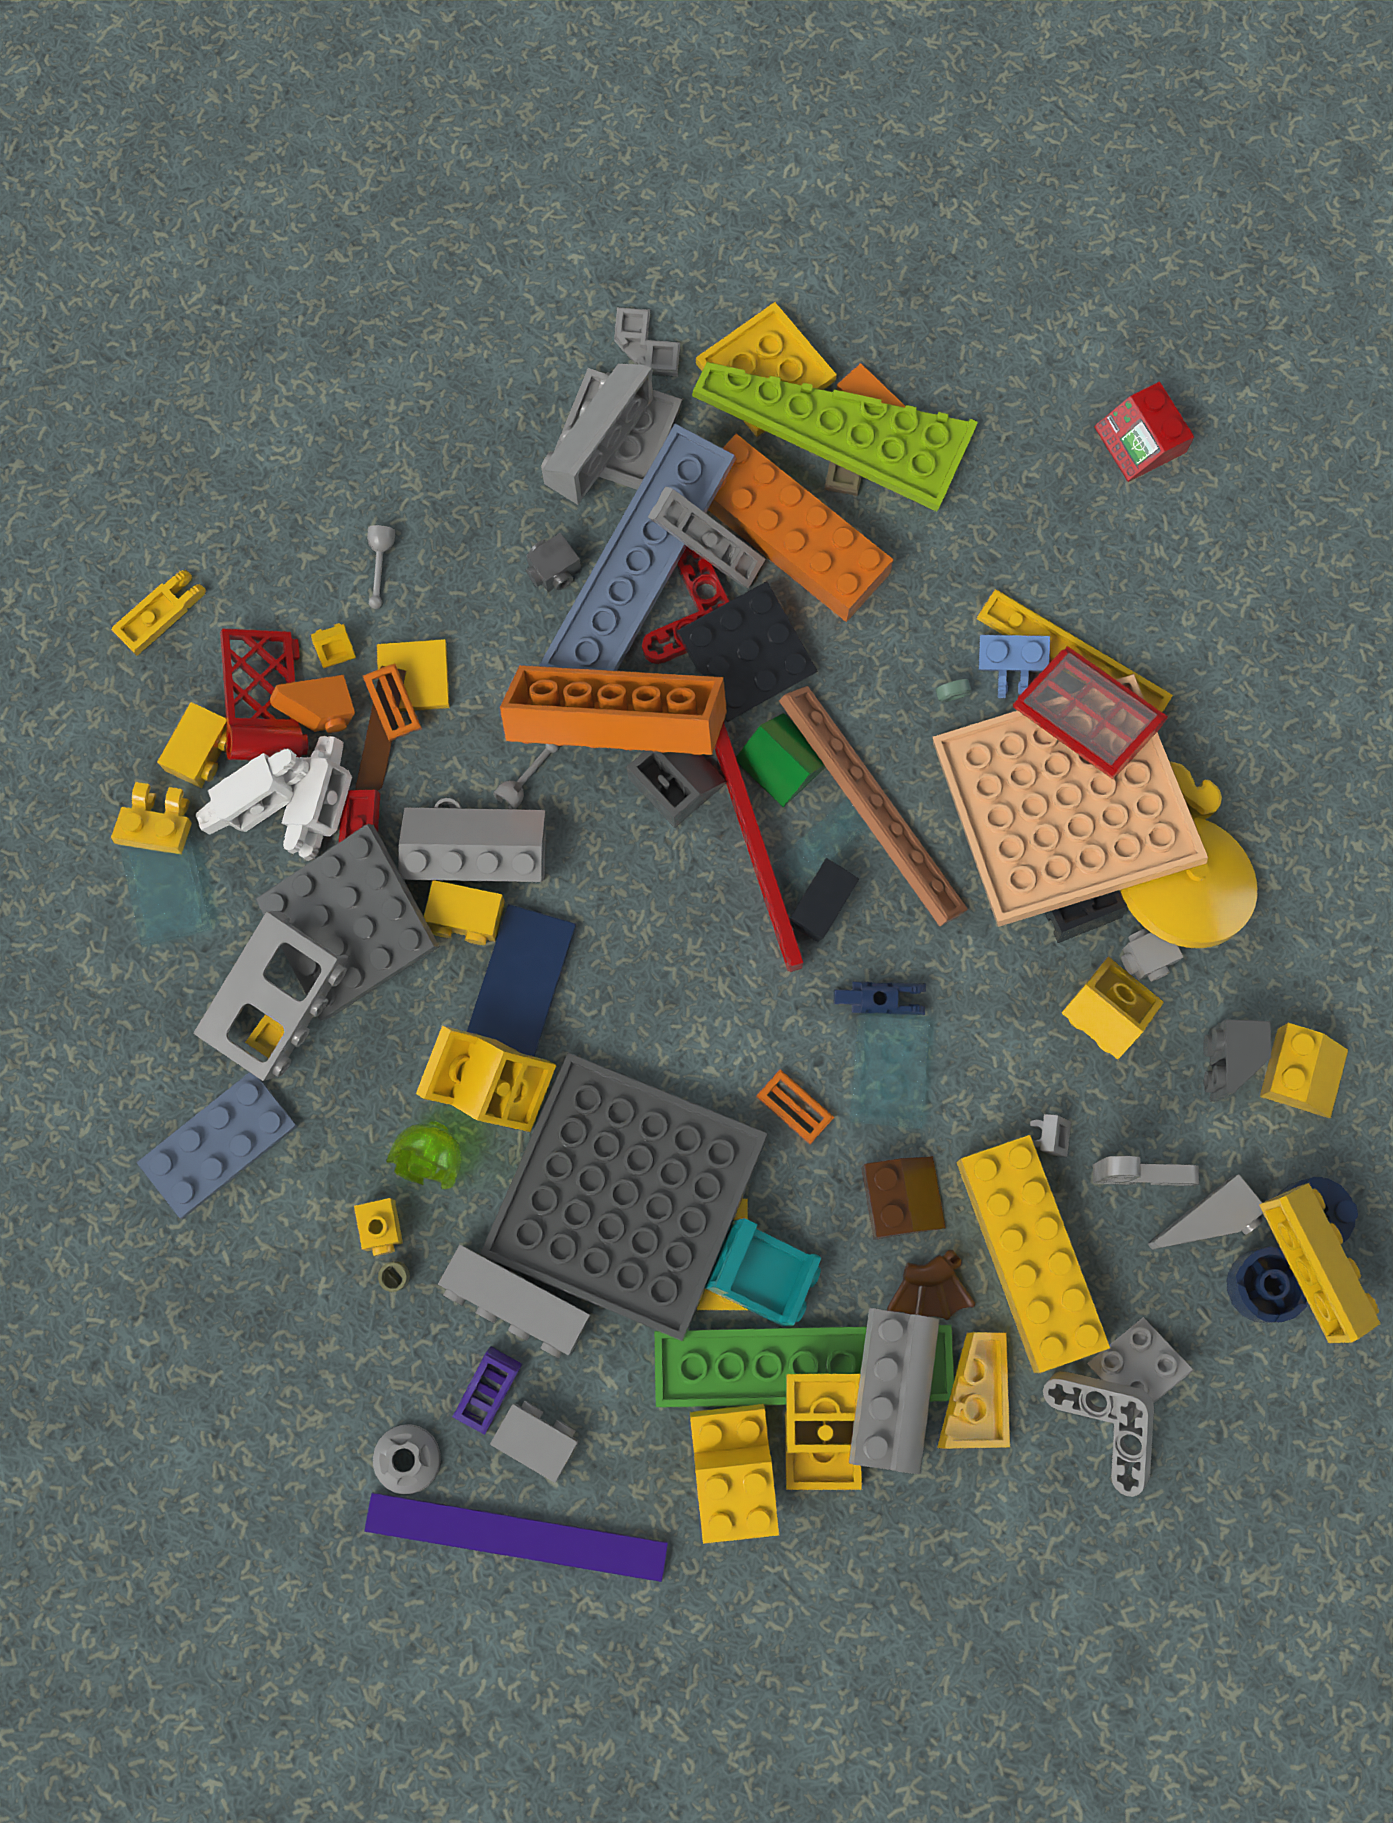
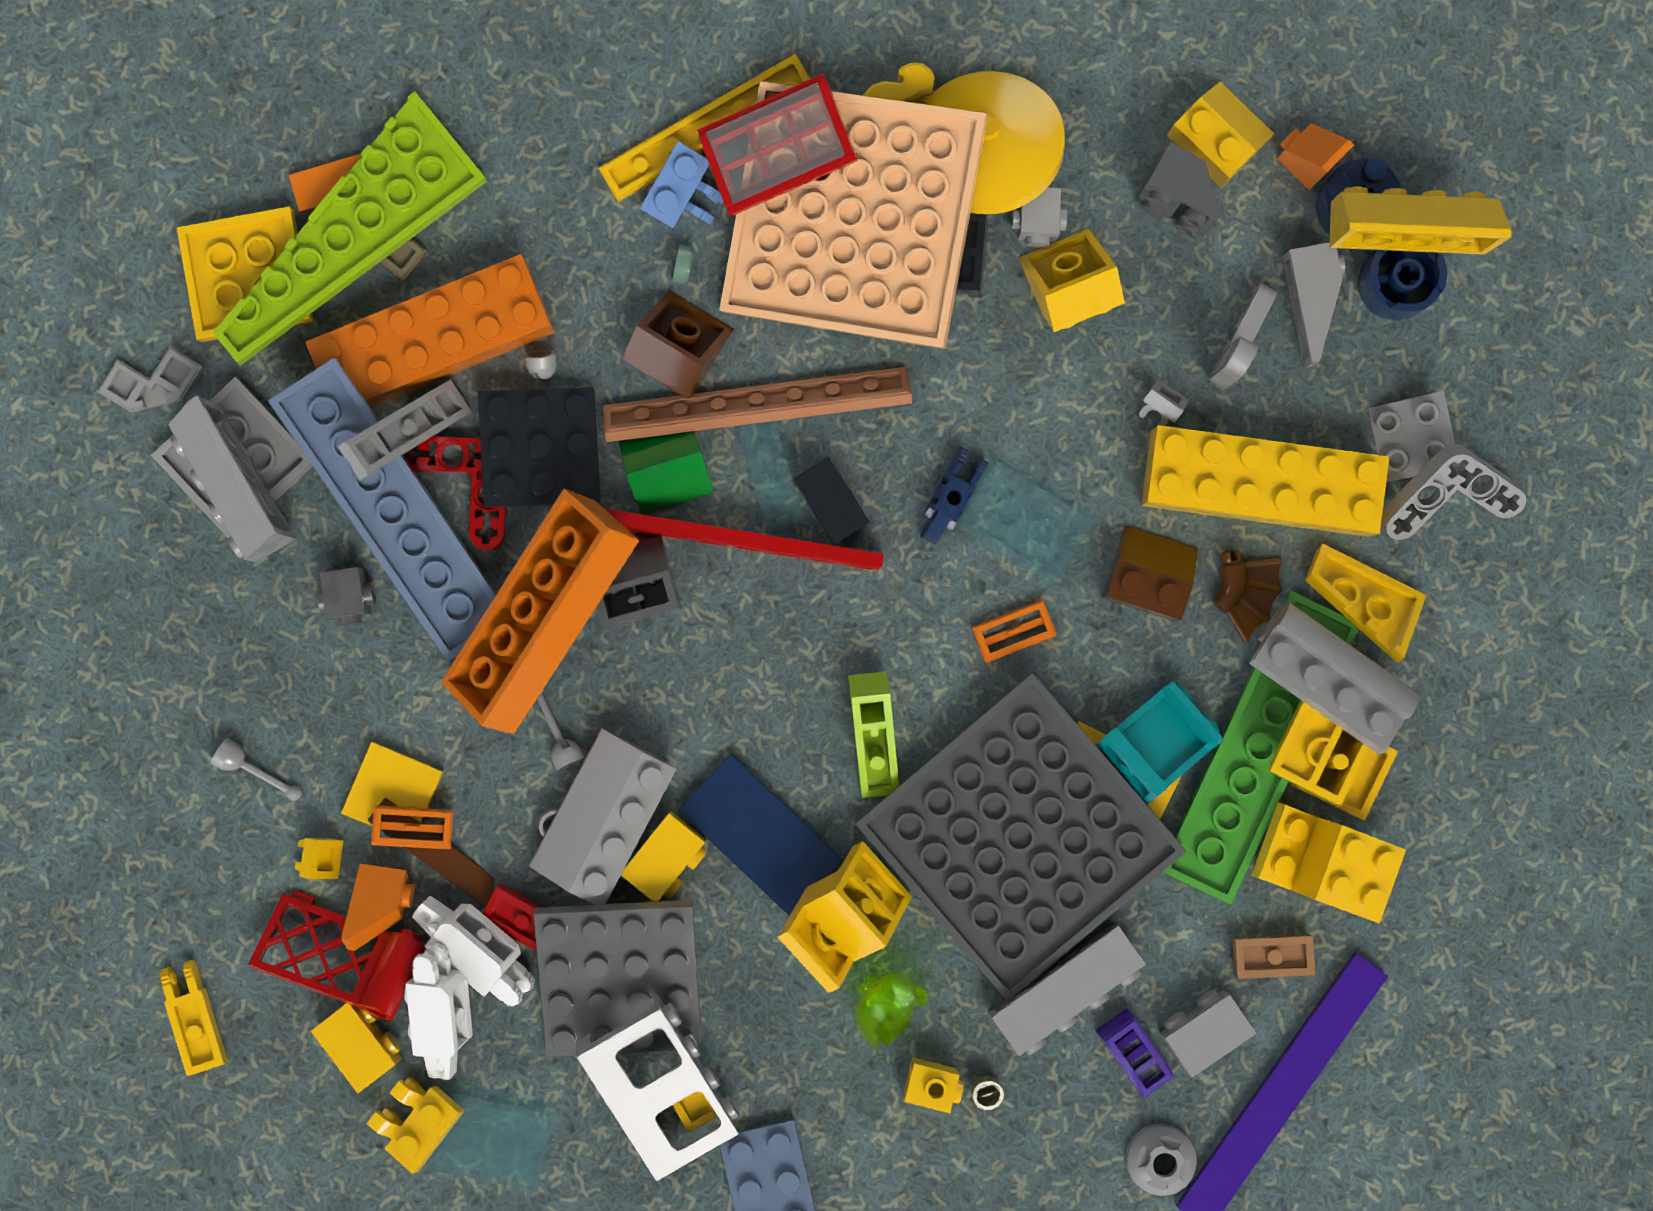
camera: 65 degrees left, 10 degrees up
(629, 1469) = (1273, 956): none -> medium nougat plate
(651, 1030) = (874, 733): none -> lime slope
(814, 622) = (541, 363): none -> light grey hinge
(887, 717) = (677, 344): none -> reddish brown slope
(1330, 1154) = (1312, 153): none -> orange slope

